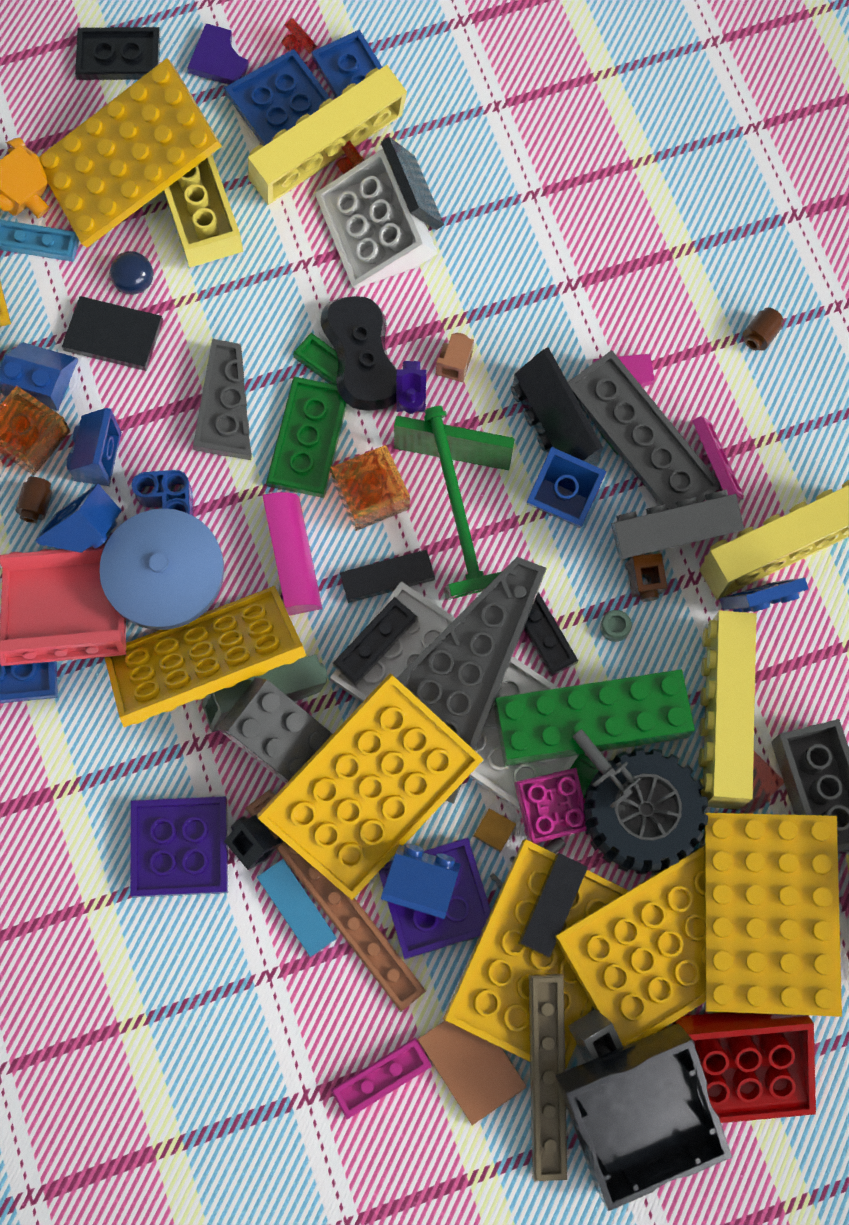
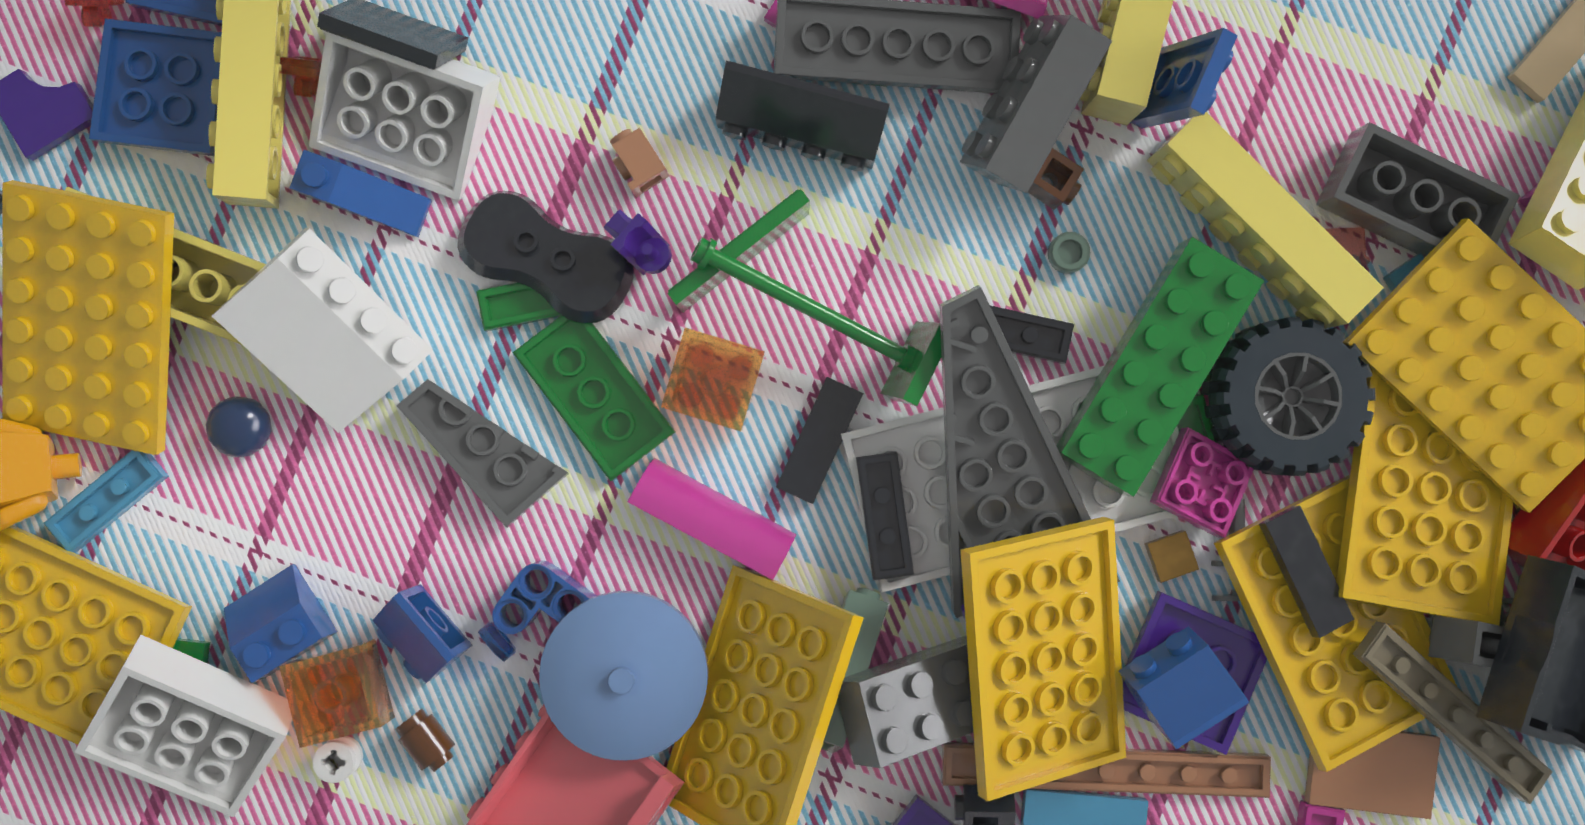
camera: 45 degrees left, 15 degrees up
(82, 522) = (498, 717): blue slope -> none
(112, 333) = (294, 503): black tile -> none
(123, 493) = (497, 641): none -> clear blue tile
(221, 267) = (322, 331): none -> white slope
(311, 234) = (360, 193): none -> blue slope
(566, 487) = (891, 179): blue slope -> none
(605, 767) = (1233, 408): dark grey piece -> none

